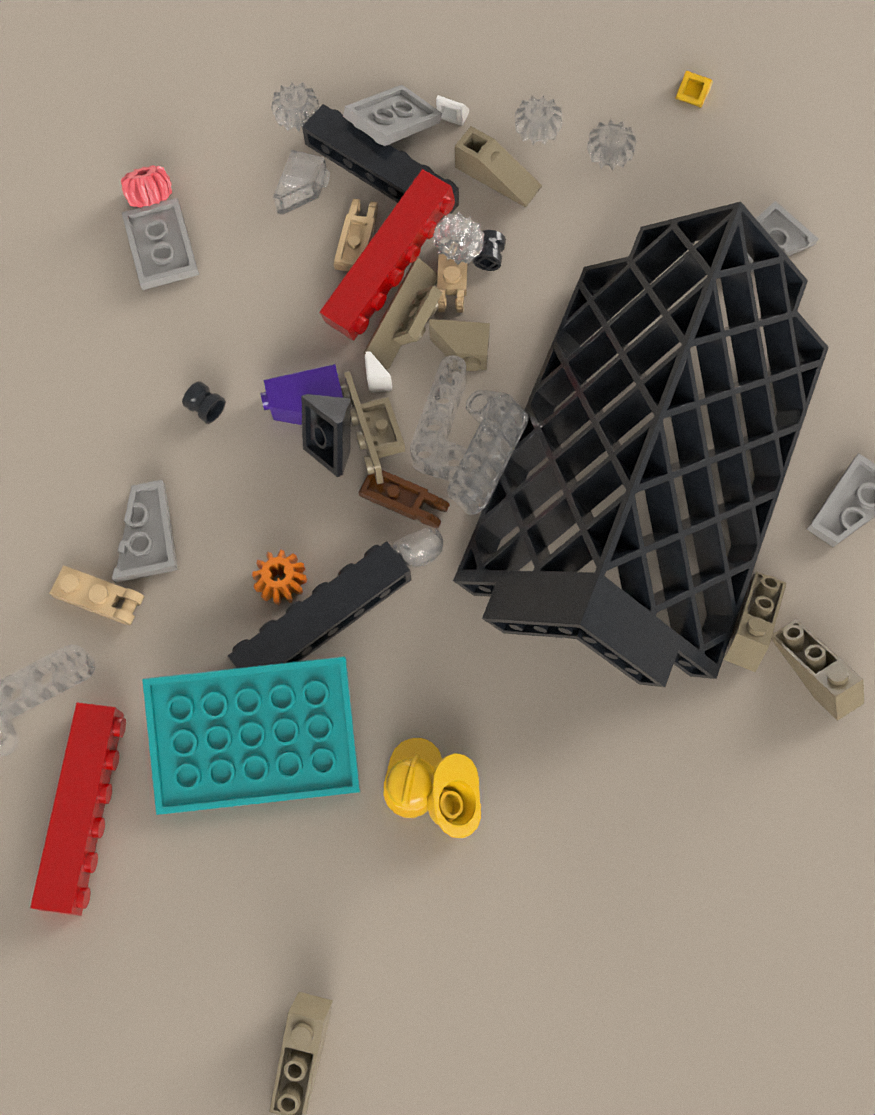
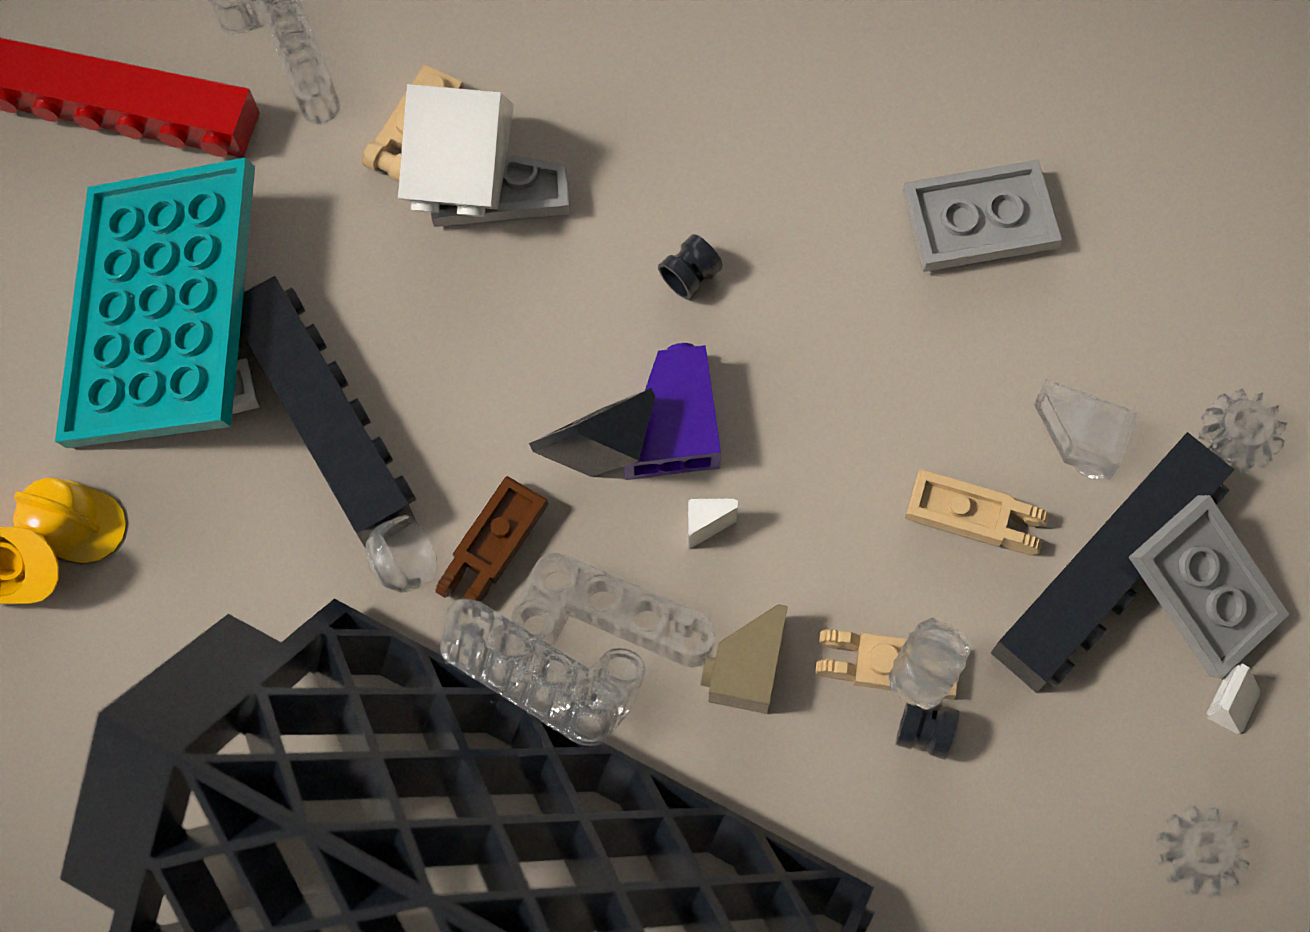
camera: 95 degrees right, 0 degrees up
(127, 545) = (454, 148): none -> white slope
(146, 186) = (1082, 193): coral gear -> none
(273, 567) = (399, 343): orange gear -> none
(377, 426) = (609, 507): dark tan bracket -> none
(388, 255) = (919, 553): red brick -> none
(406, 313) = (814, 577): dark tan bracket -> none
(494, 166) = (1093, 759): dark tan slope -> none

